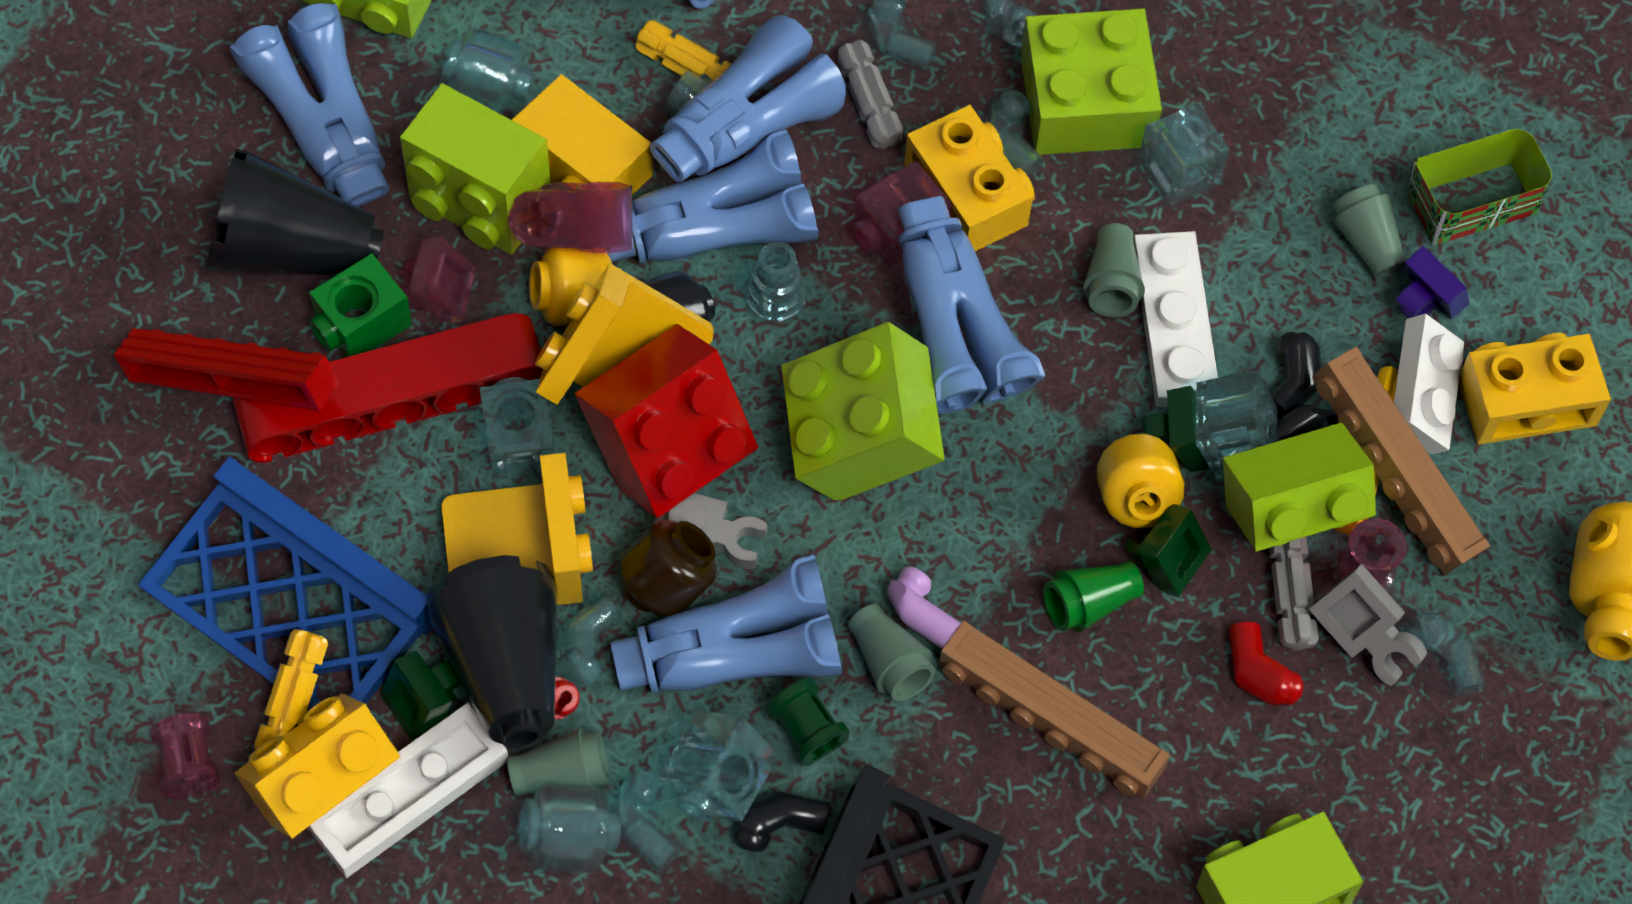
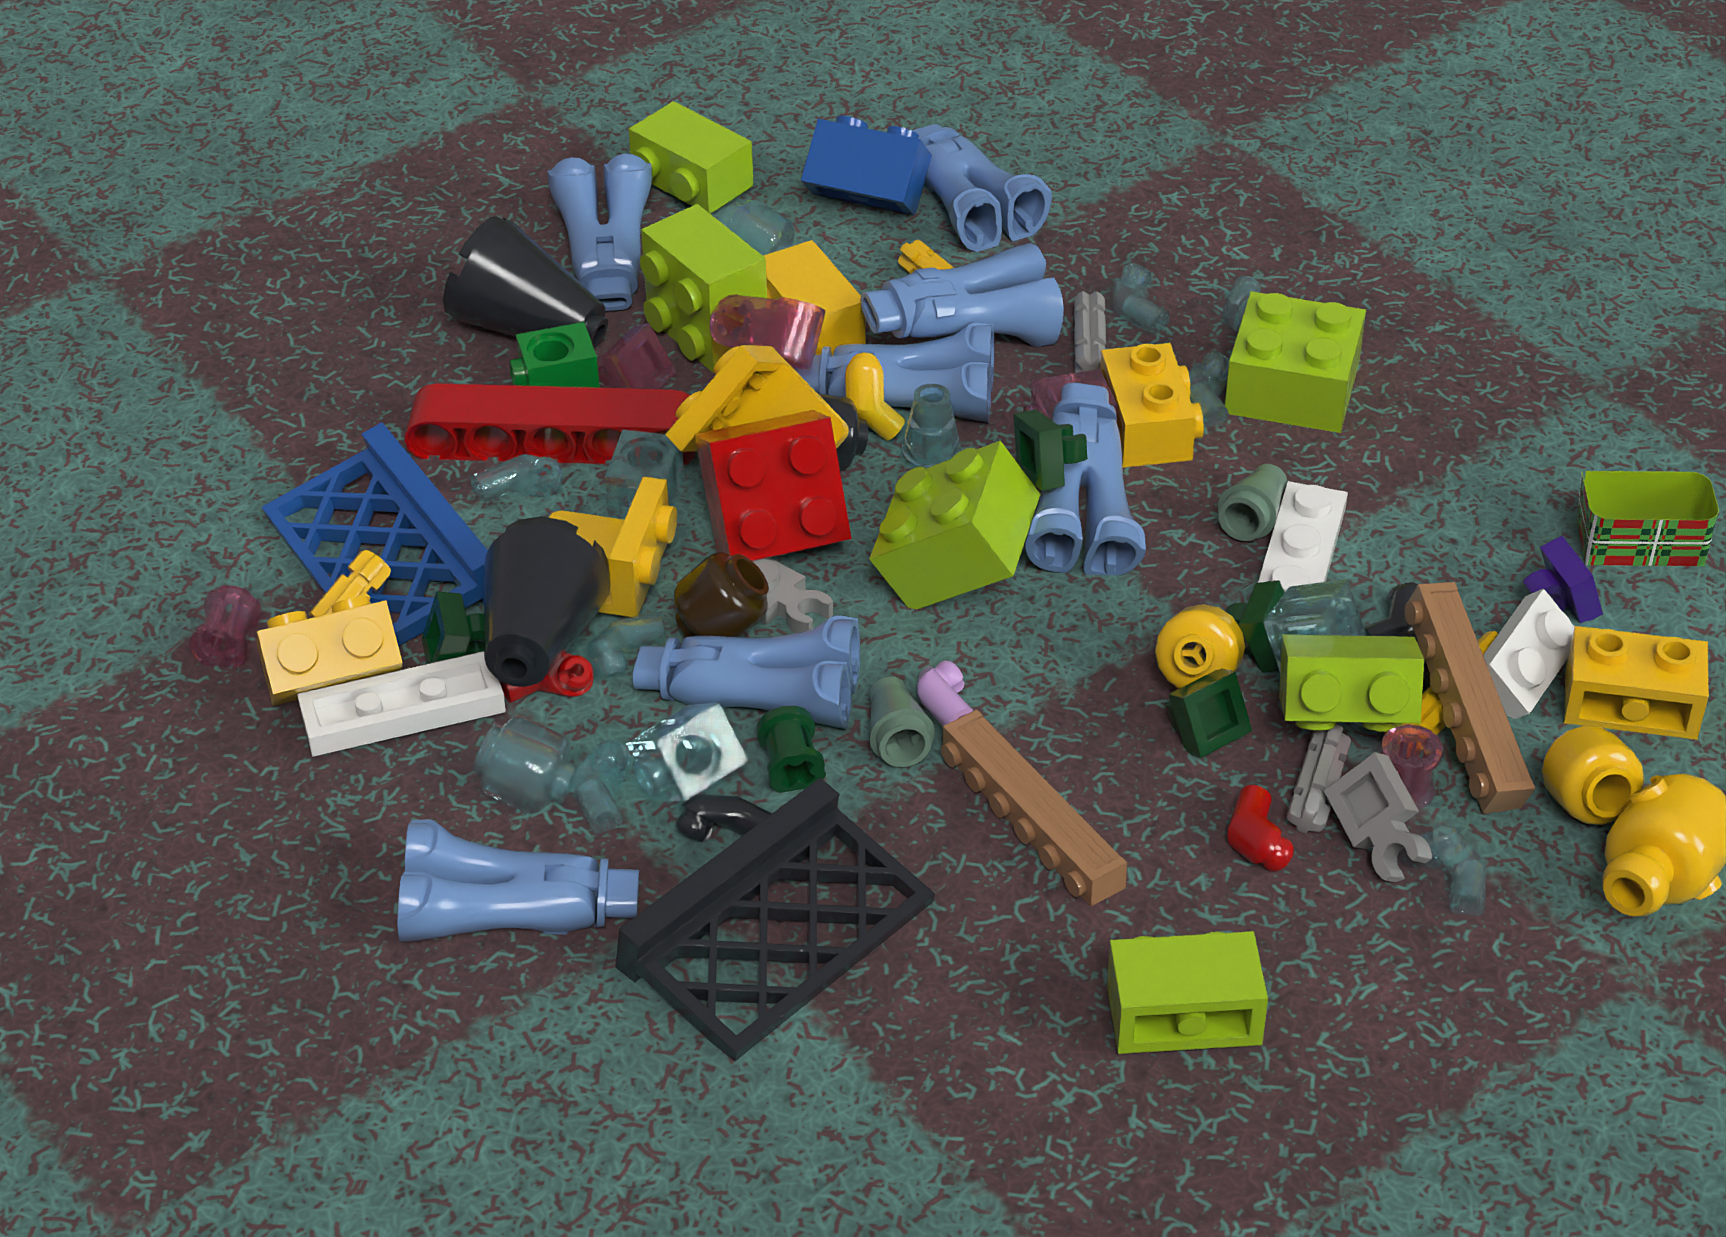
camera: 25 degrees right, 20 degrees down
(227, 368) = (417, 365): red piece -> none
(384, 458) = (520, 475): none -> clear light blue arm
(566, 760) = (560, 711): sand green cone -> none
(695, 256) = (866, 389): none -> yellow arm
(920, 304) = (1045, 448): none -> dark green tile
(1089, 594) = (1113, 727): green cone -> none
(1183, 155) = (1359, 430): clear light blue brick -> none
(1371, 228) = (1523, 525): sand green cone -> none
(1536, 516) = (1592, 774): none -> yellow head

